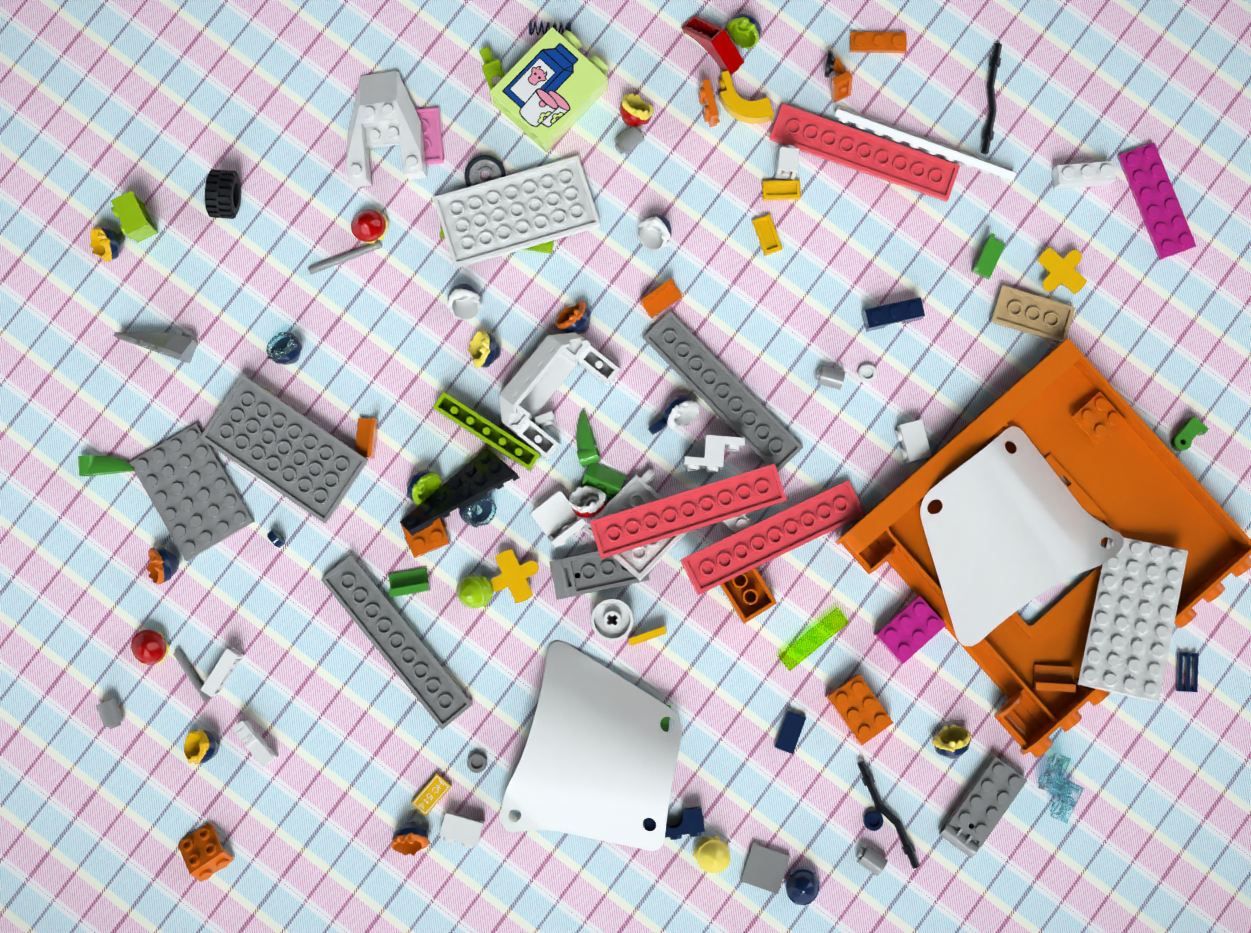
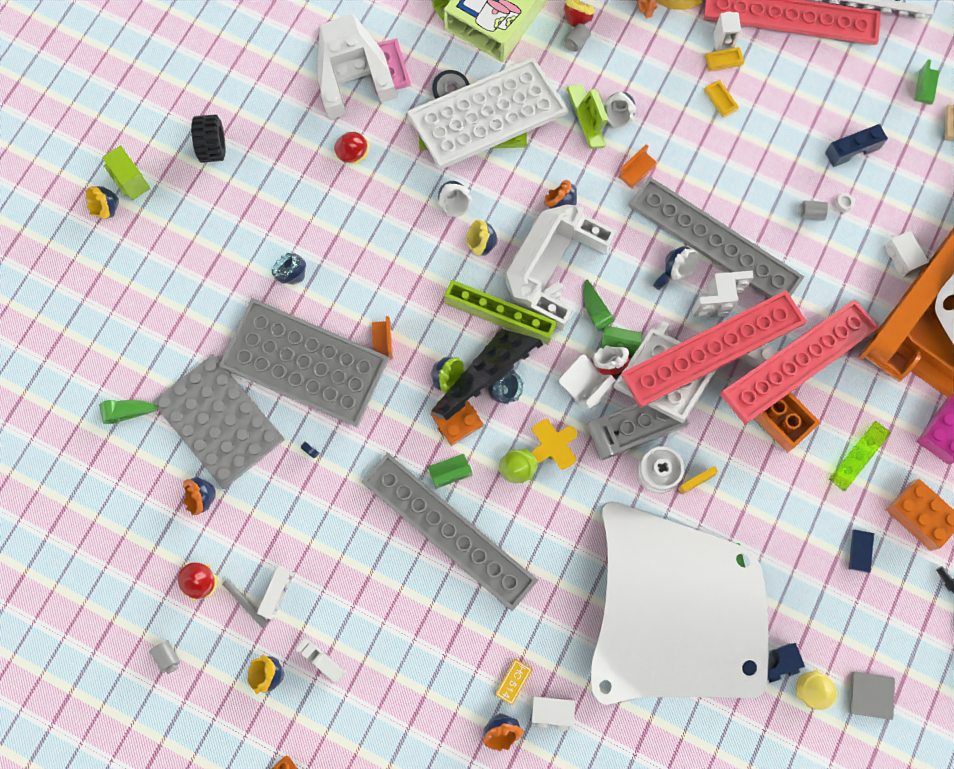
camera: 10 degrees left, 10 degrees down
(169, 344) = (174, 284): light grey wedge -> none
(344, 257) = (333, 180): light grey bar -> none
(477, 762) = (553, 640): light grey tile -> none
(622, 230) = (589, 113): none -> lime bracket
(802, 886) = (916, 706): dark blue hair -> none

